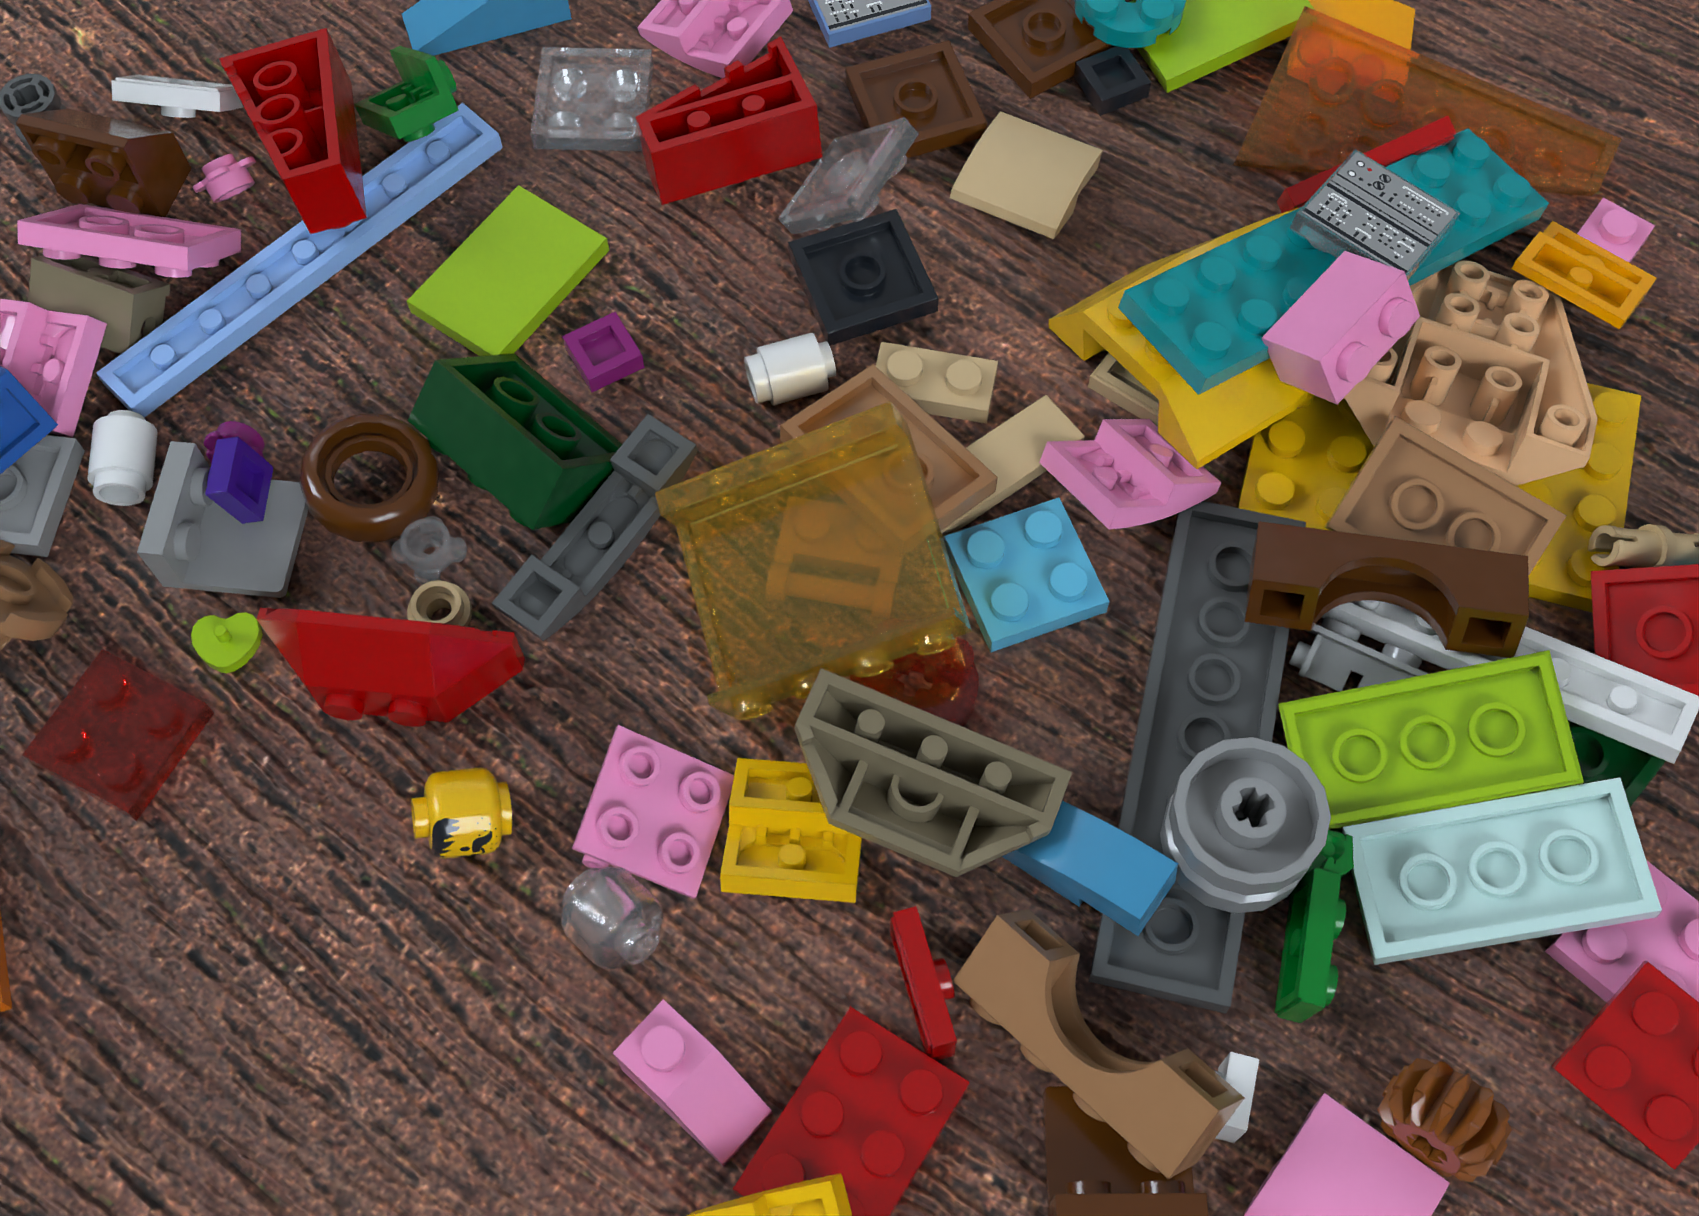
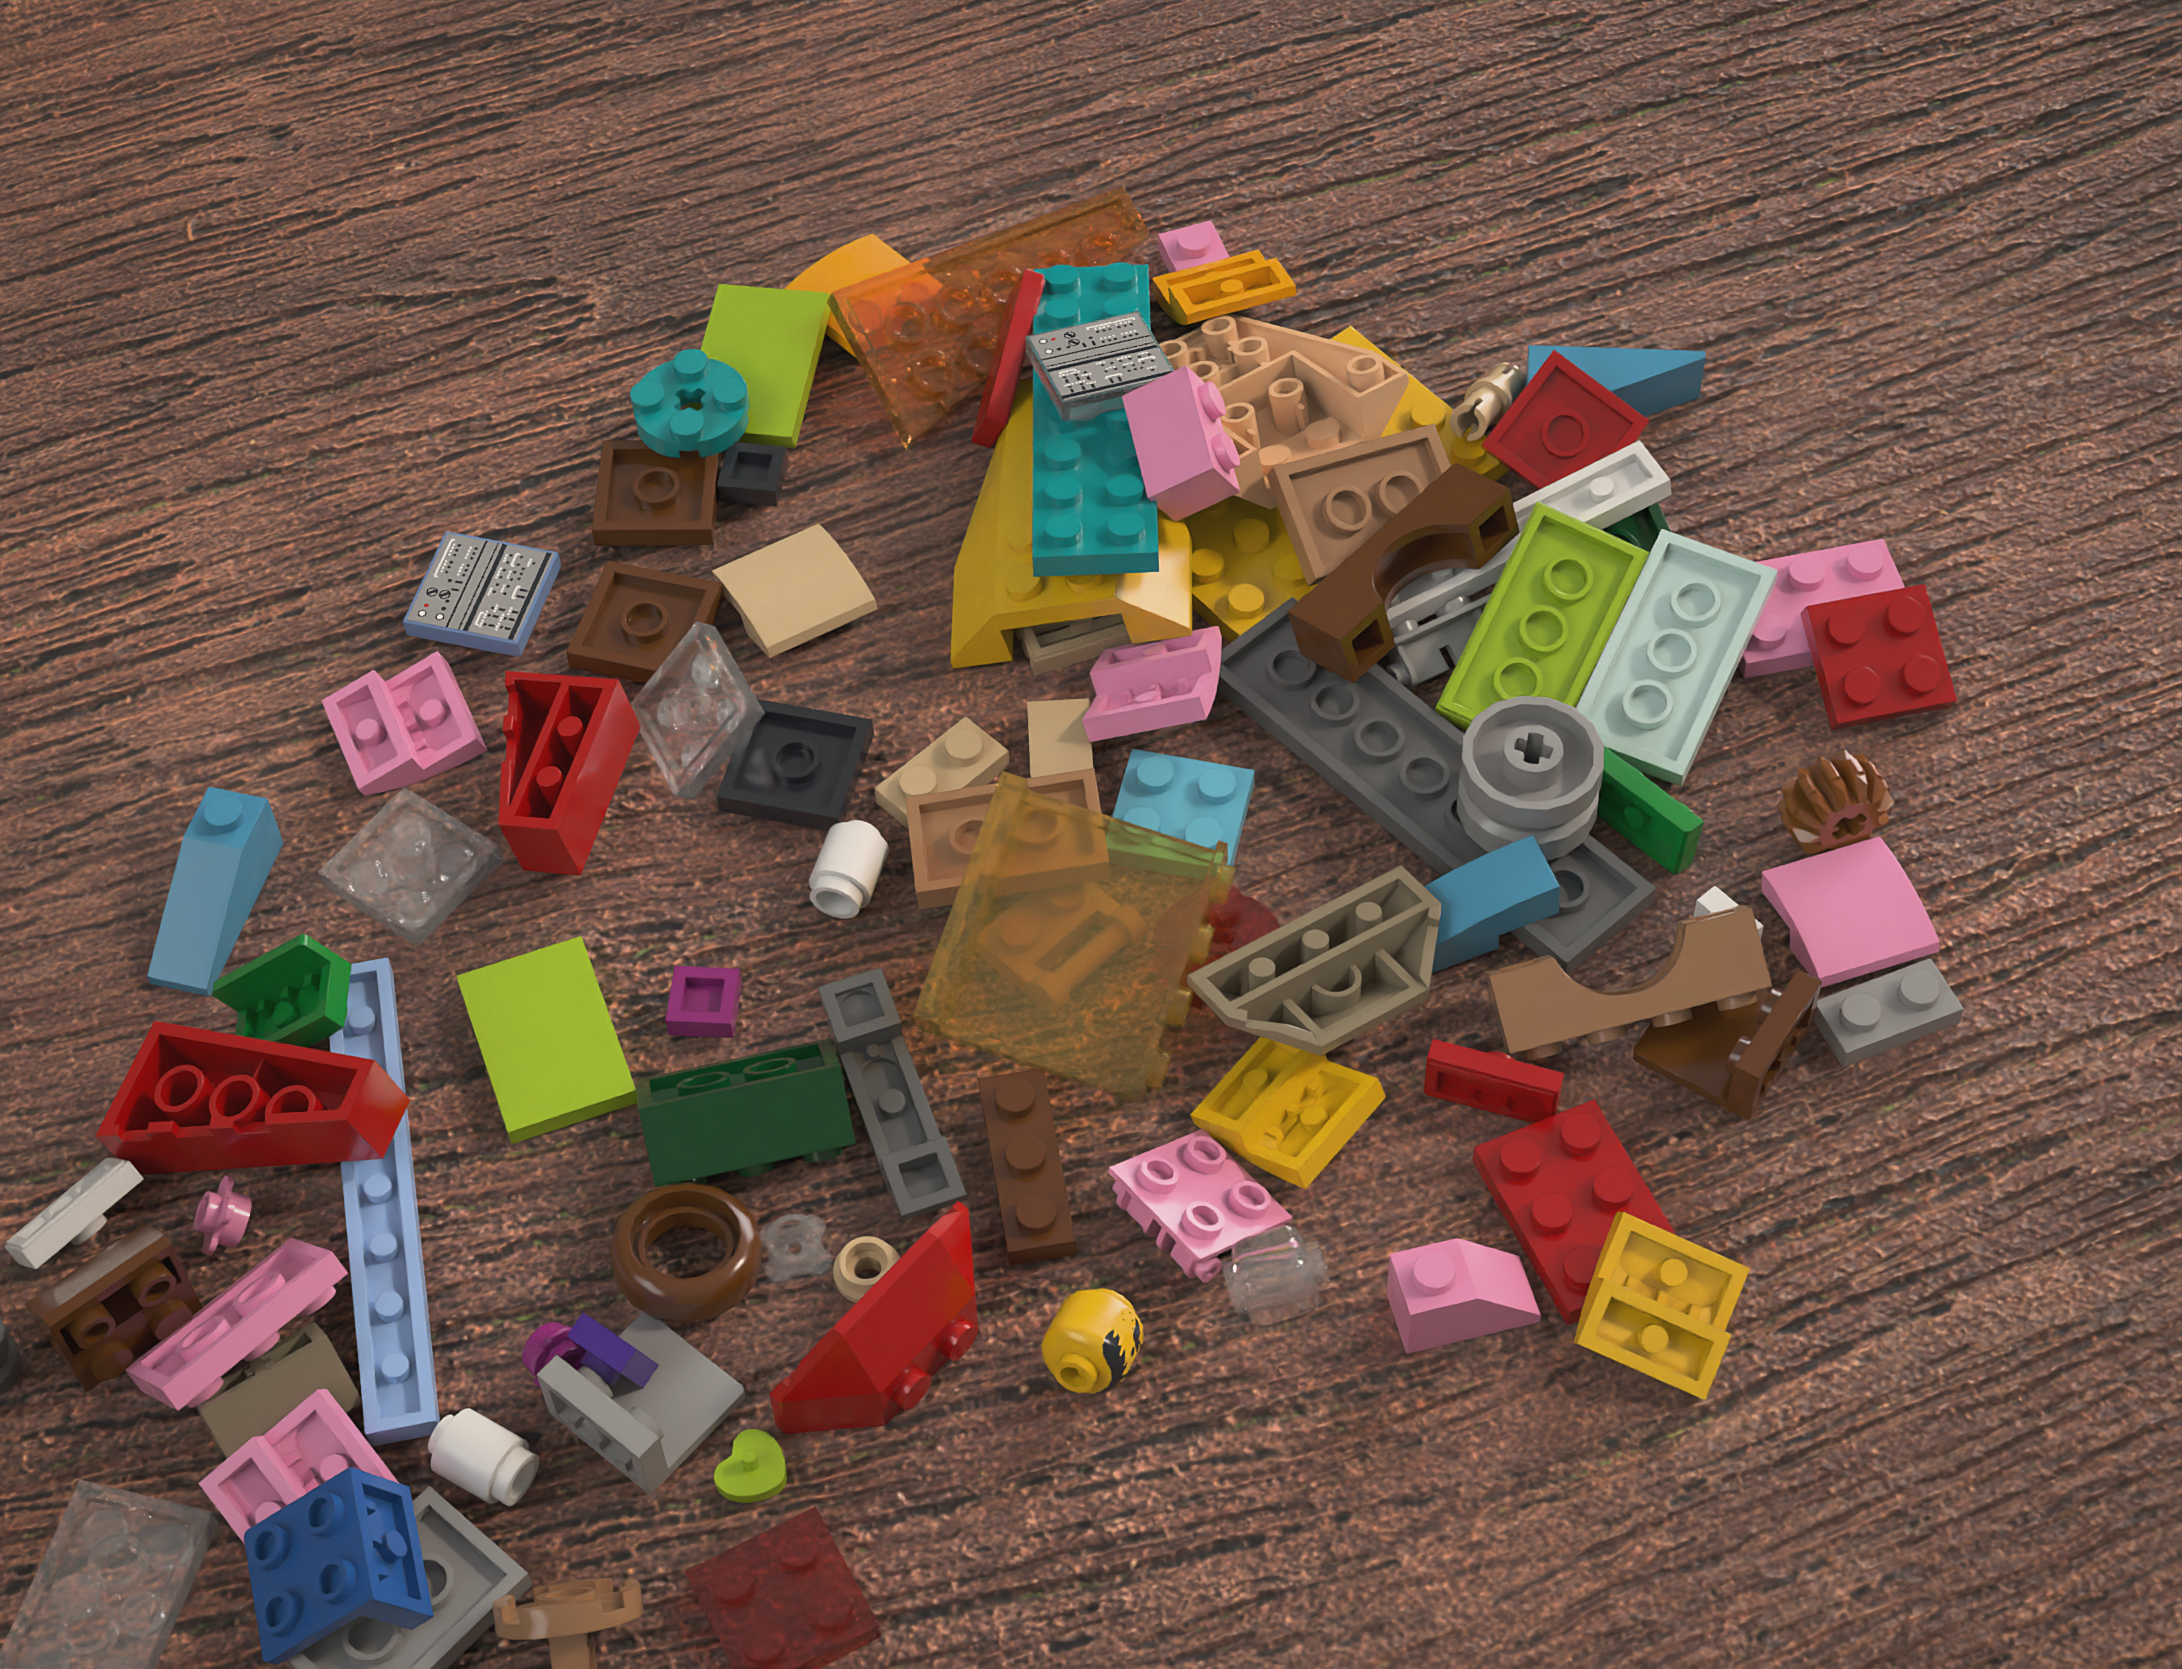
camera: 55 degrees left, 10 degrees down
(609, 666) = (1027, 1167): none -> reddish brown plate

